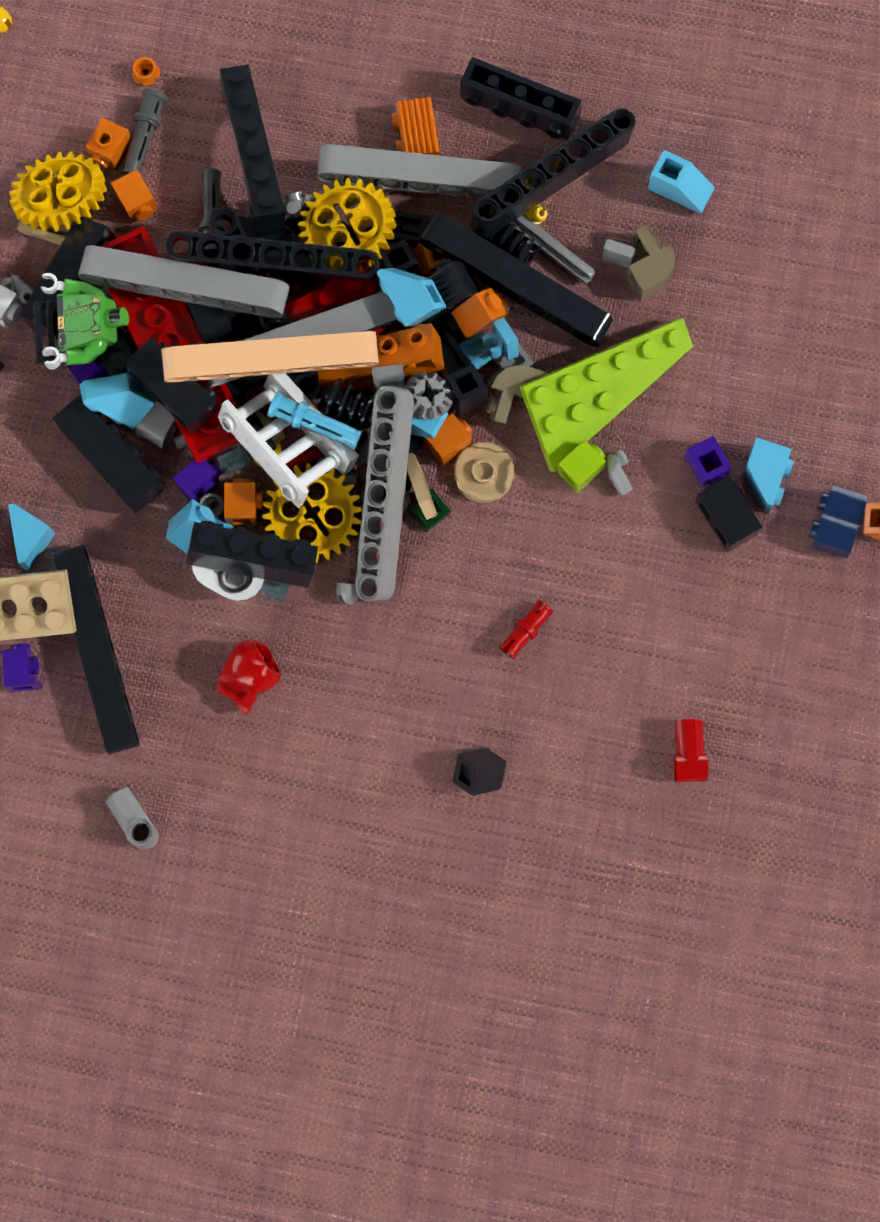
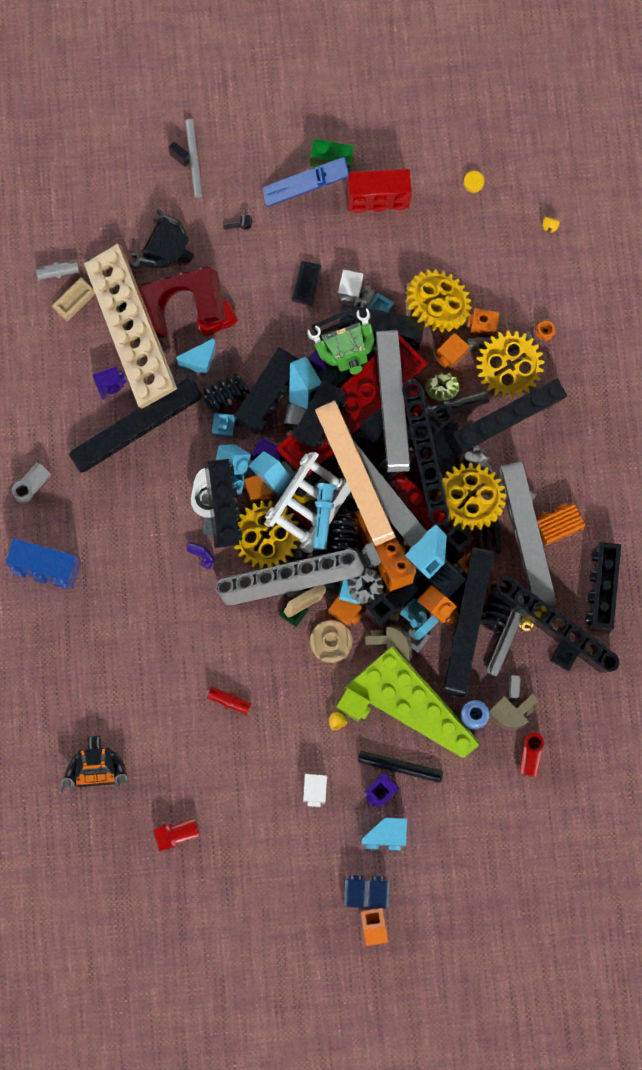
camera: 65 degrees right, 0 degrees up
(33, 270) = (381, 303): none -> medium azure tile
(89, 512) = (224, 392): none -> black piece
(135, 530) = (223, 425): none -> medium azure tile
(152, 130) = (520, 380): none -> yellow gear
(190, 221) = (438, 392): none -> yellowish green gear
(227, 477) = (271, 472): none -> medium azure slope
(248, 672) = (146, 527): red piece -> none
(257, 829) = (42, 564): none -> blue brick
(308, 607) = (203, 552): none -> dark purple arm
(346, 593) = (220, 573): light grey hinge -> none
(479, 771) = (123, 697): black panel -> none
(568, 836) = (95, 767): none -> torso
(595, 182) = (563, 658): none -> black tile
(595, 494) = (337, 721): none -> yellow hinge
(616, 473) = (355, 730): light grey arm -> none
(641, 311) = (479, 709): none -> medium blue head
(680, 182) = (578, 716): medium azure slope -> none
(680, 430) = (400, 766): none -> black axle
(681, 549) = (315, 790): none -> white brick
(716, 260) = (531, 757): none -> red piece
(728, 514) = (349, 815): black panel -> none

